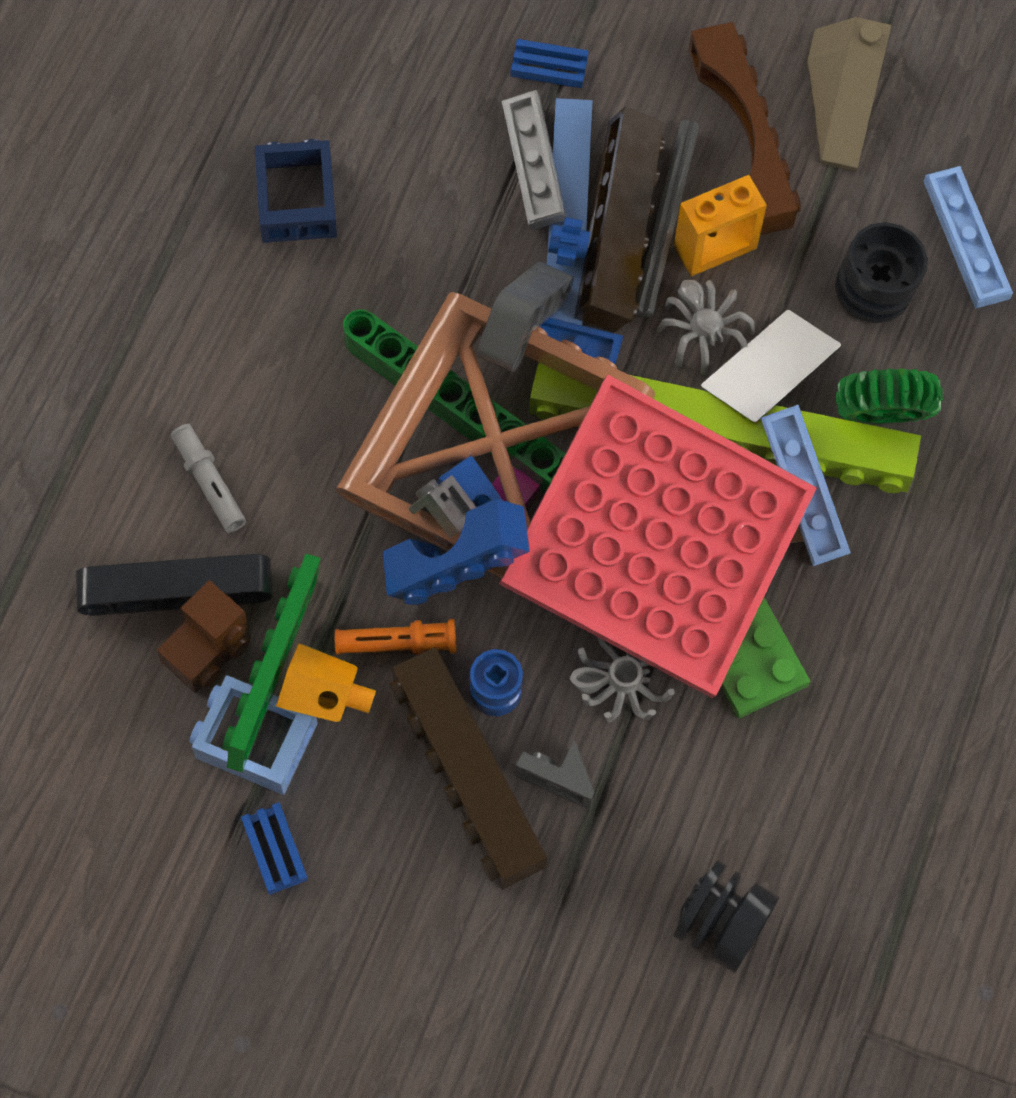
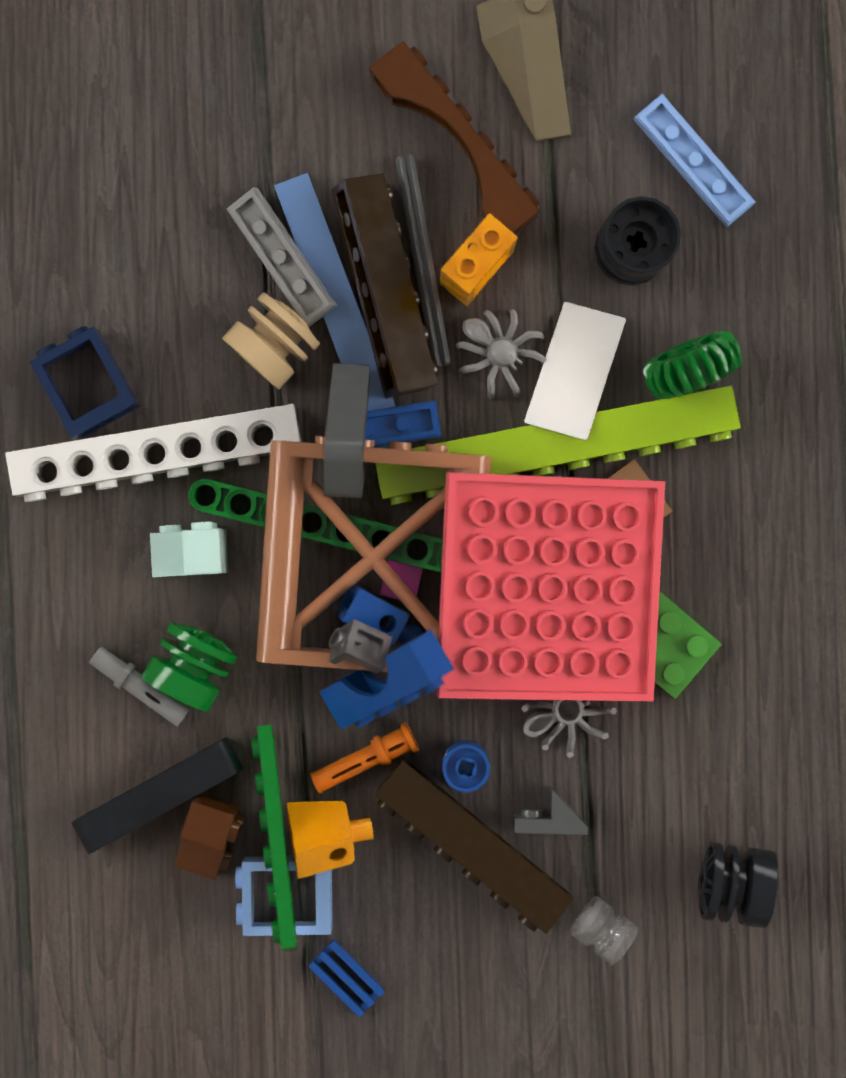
camera: 25 degrees left, 20 degrees up
(209, 234) = (27, 464): none -> white brick
(275, 465) = (189, 666): none -> green wheel
(321, 372) = (190, 551): none -> light aqua brick
(496, 215) = (271, 340): none -> tan wheel
(551, 58) = (250, 135): blue tile -> none
(564, 908) = (607, 932): none -> clear wheel
(569, 242) = (351, 333): blue gear -> none
(796, 455) = (641, 462): light blue tile -> none

